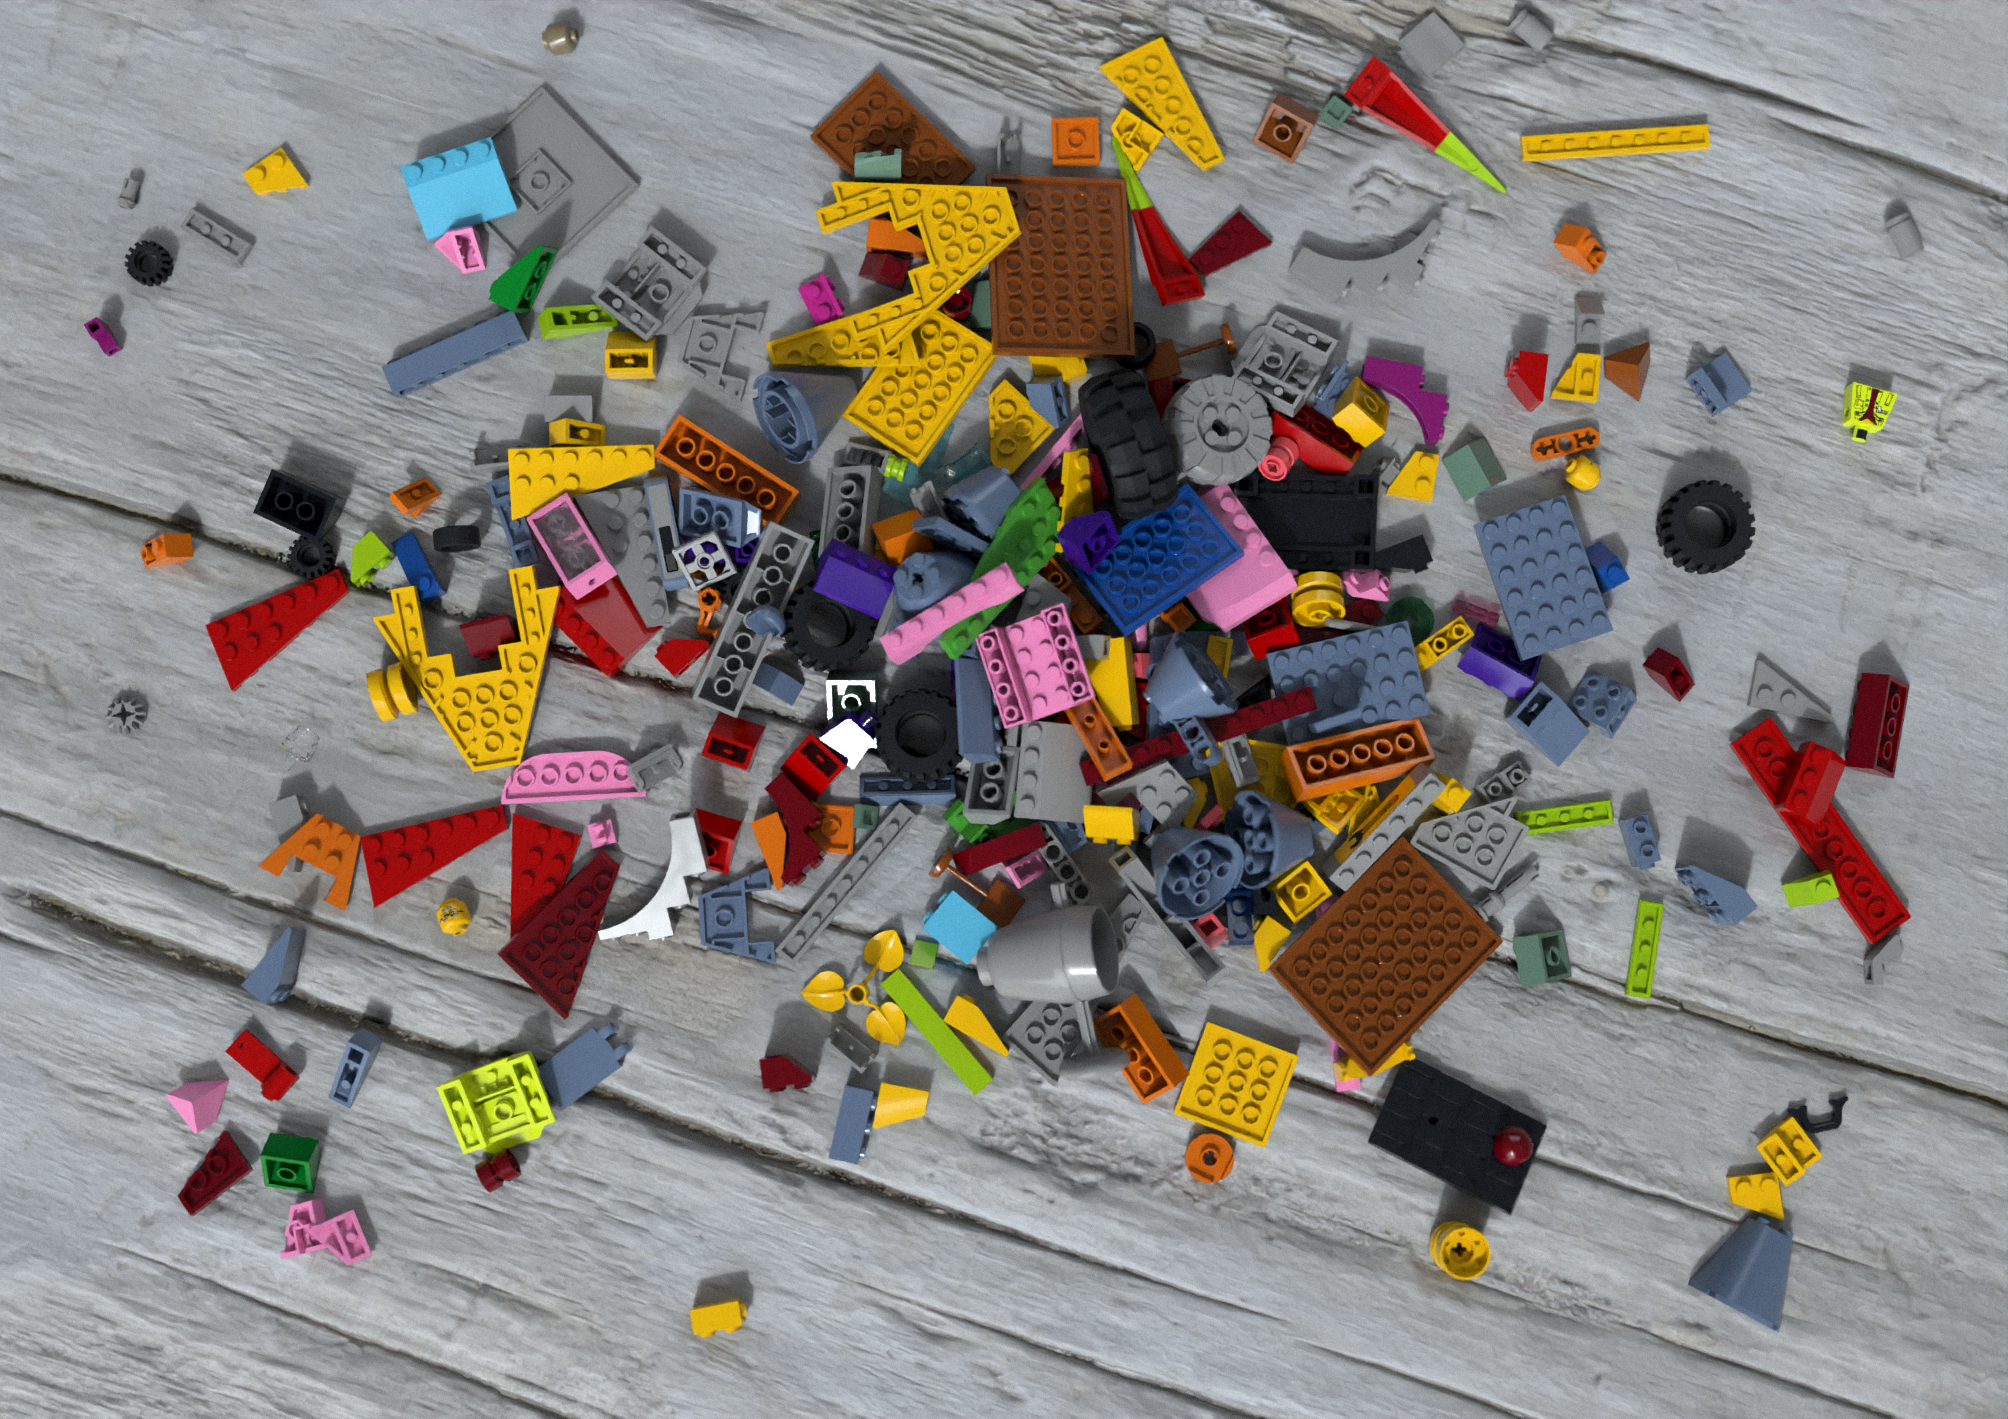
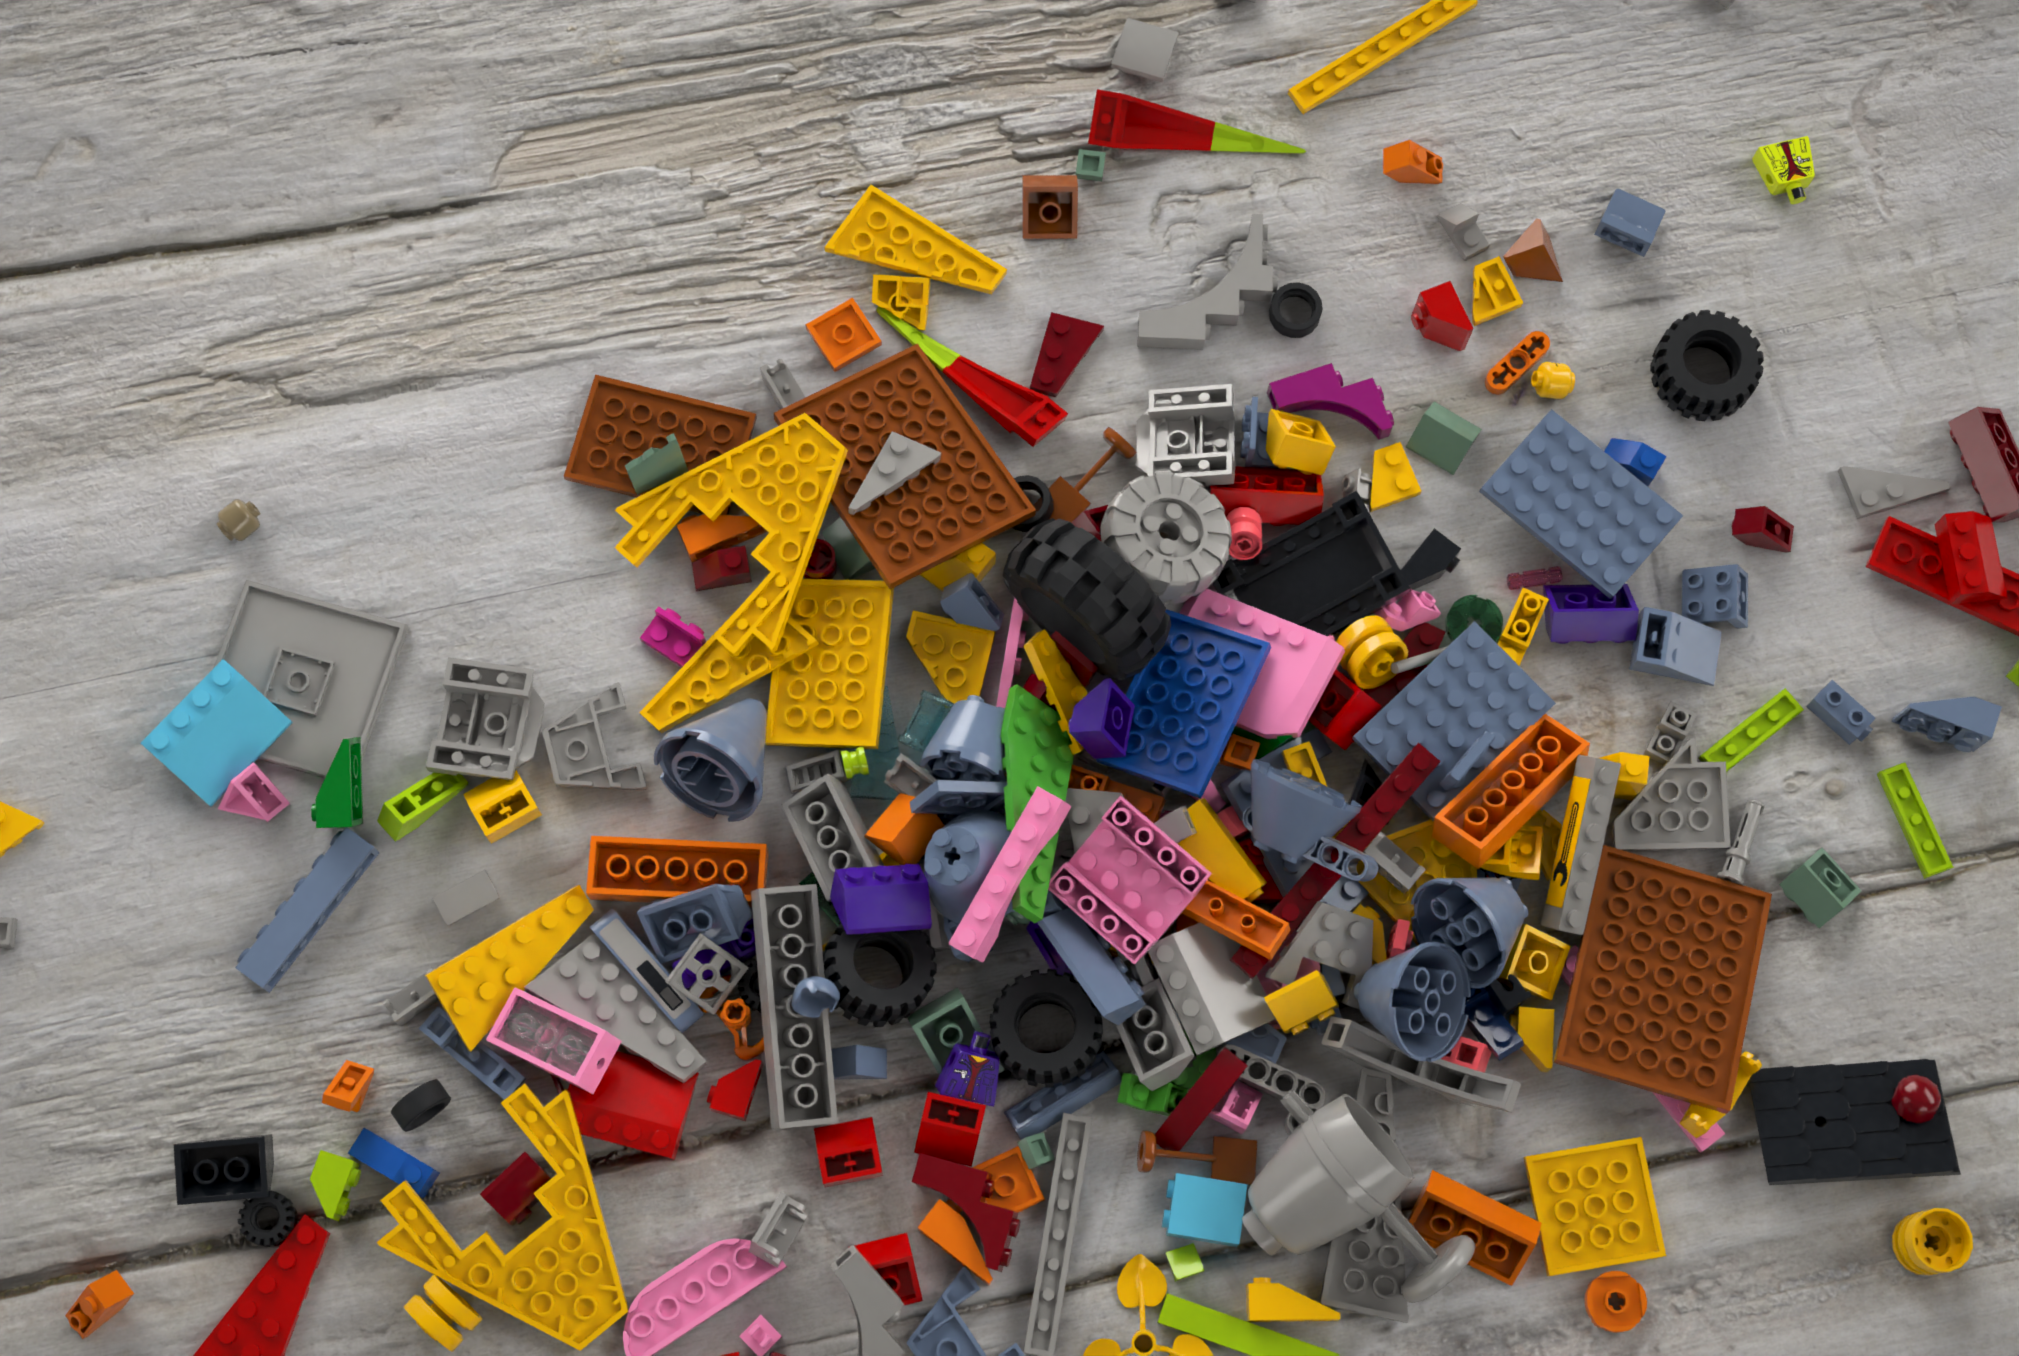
camera: 30 degrees left, 10 degrees down
(575, 433) = (487, 920): yellow slope -> none
(1052, 263) = (895, 464): none -> light grey wing
(1435, 298) = (1295, 290): none -> black tyre

